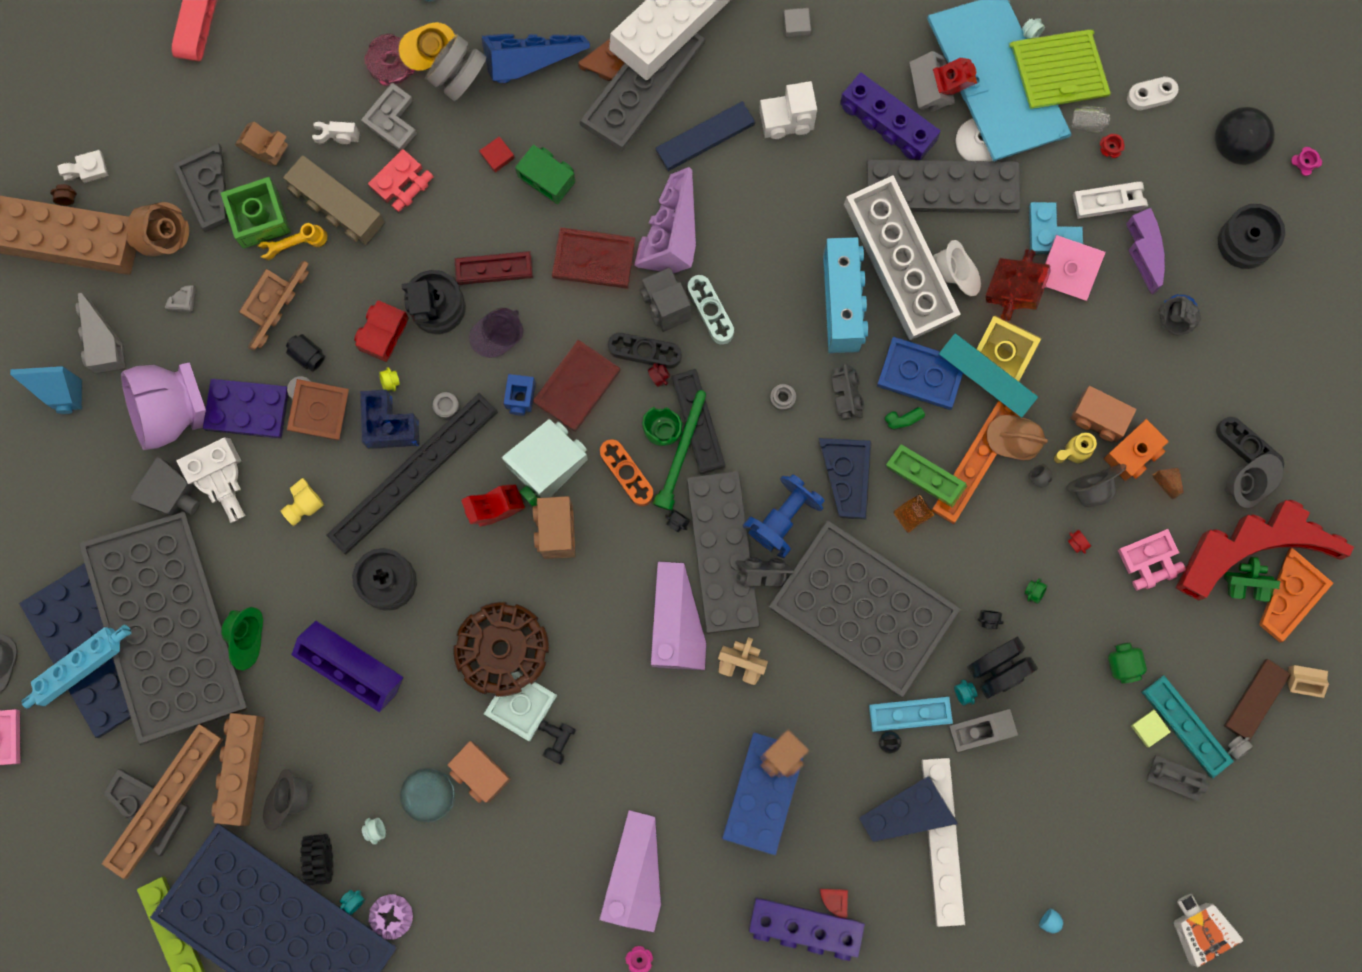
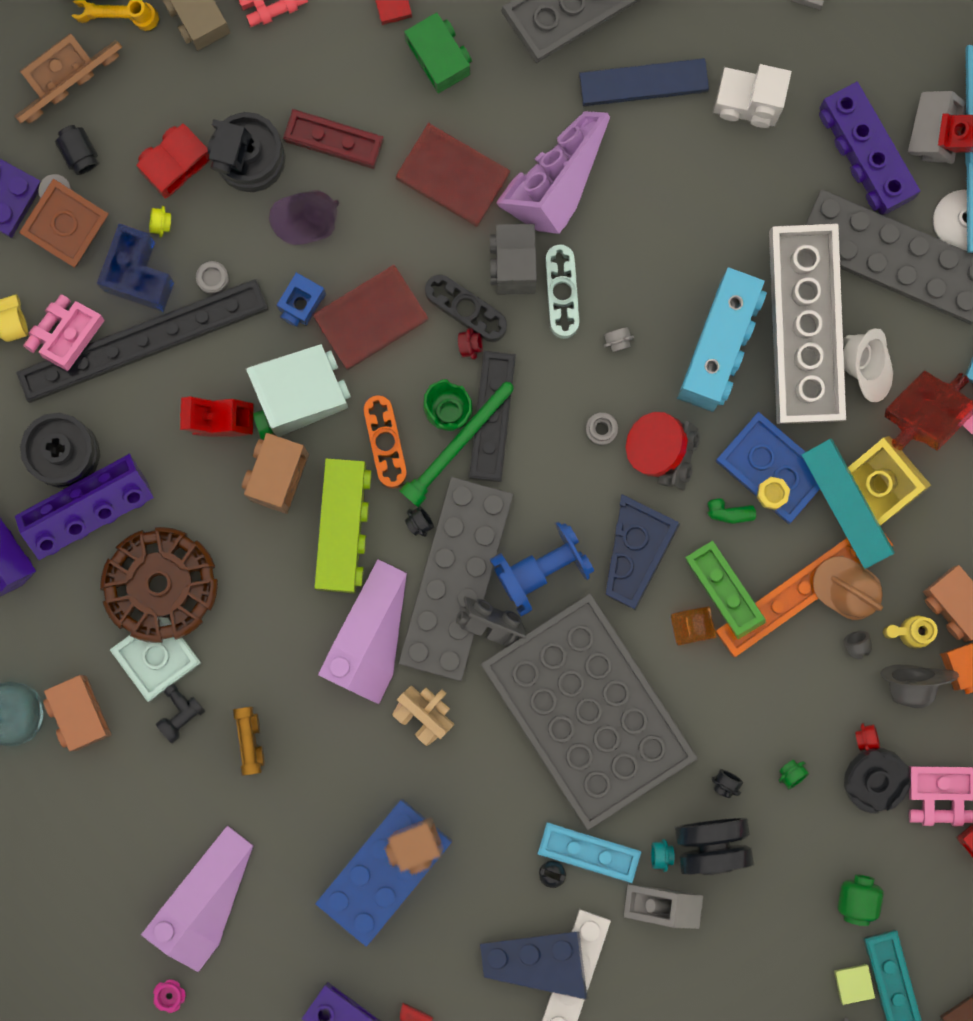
camera: 20 degrees right, 5 degrees up
(356, 493) = (70, 335): none -> bright pink plate
(420, 614) = (83, 507): none -> dark purple brick
(614, 728) = (247, 727): none -> pearl gold plate
(620, 547) = (340, 526): none -> lime brick
(767, 327) = (618, 339): none -> light grey plate
(828, 390) = (656, 444): none -> red tile
(930, 390) = (773, 493): none -> light yellow tile
(1099, 569) = (877, 780): none -> black tile

